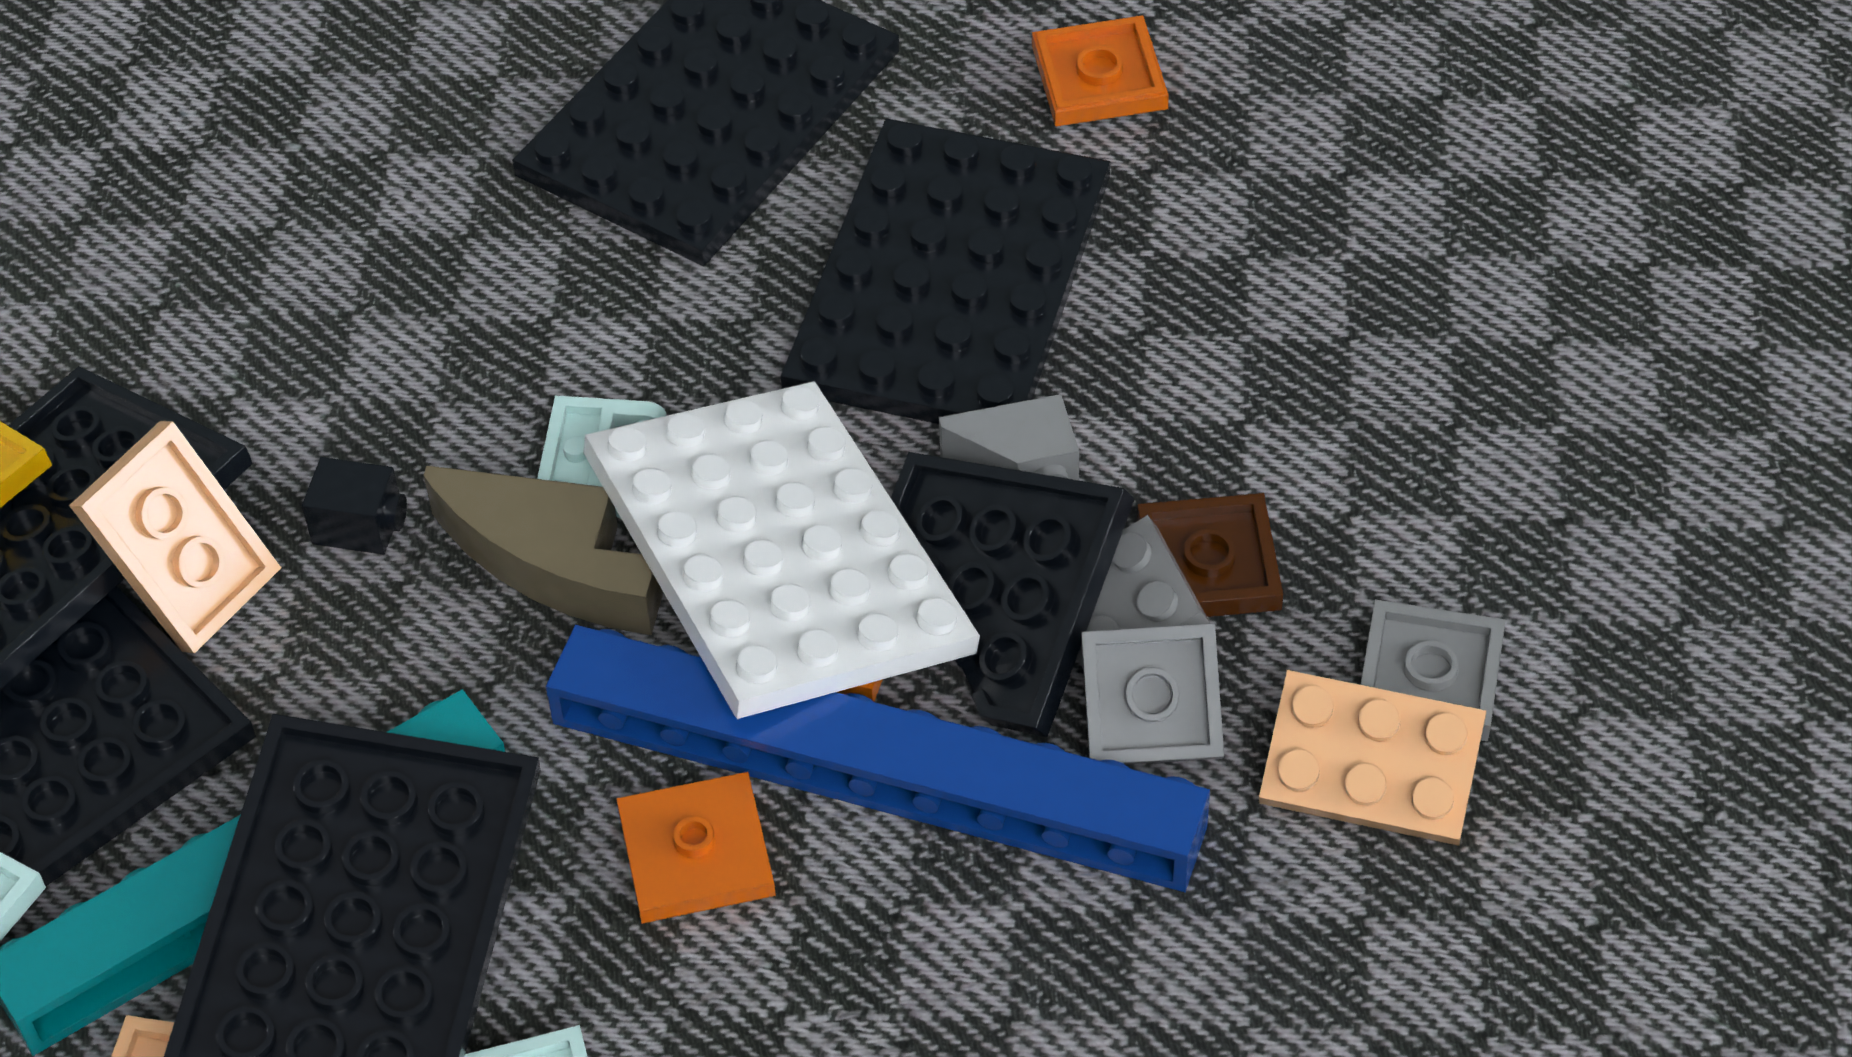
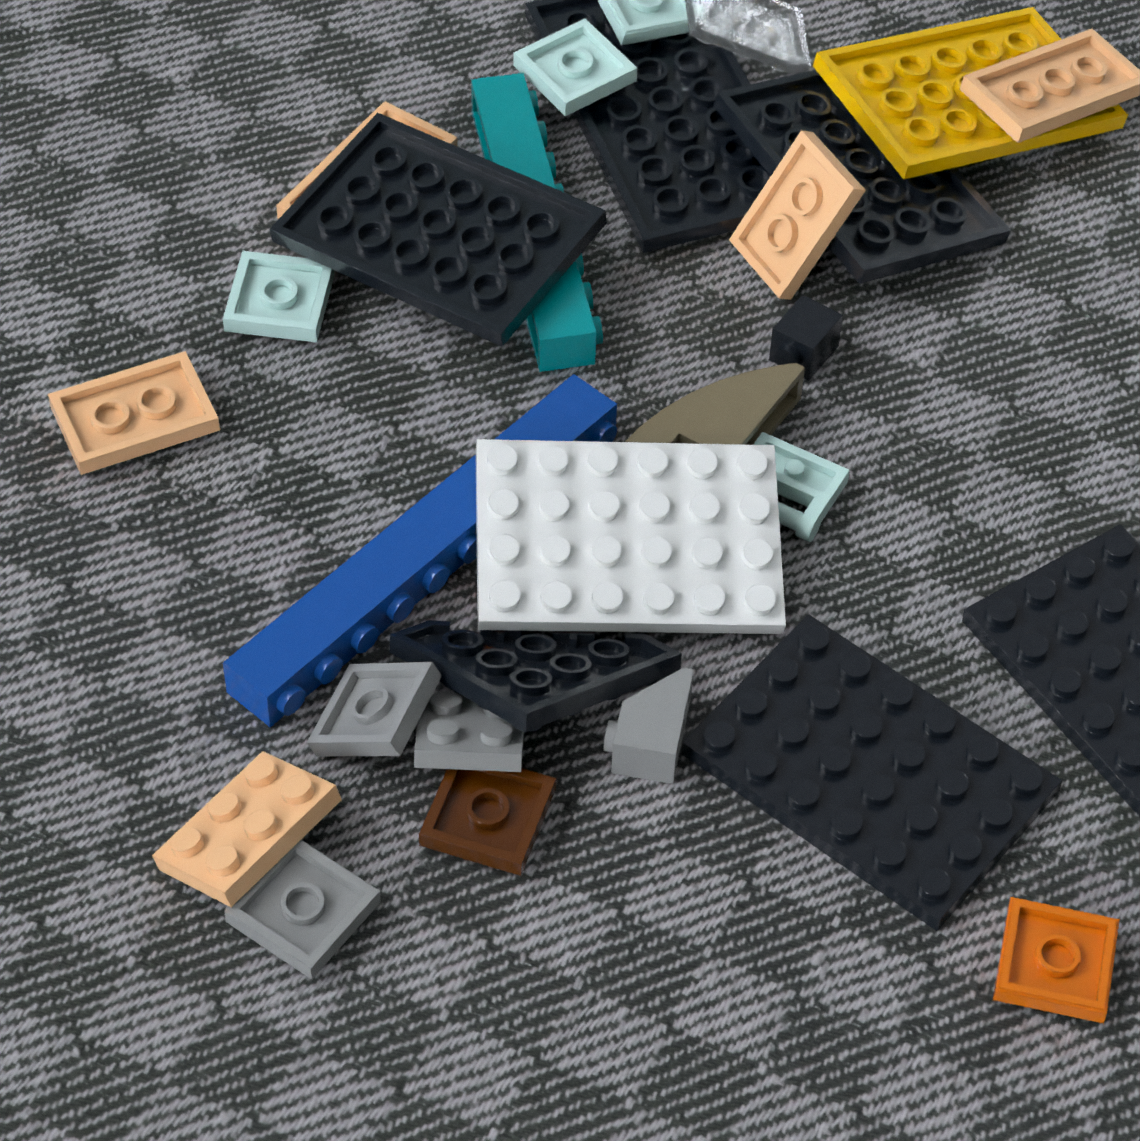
camera: 110 degrees right, 0 degrees up
(695, 847) = (421, 437): orange plate -> none

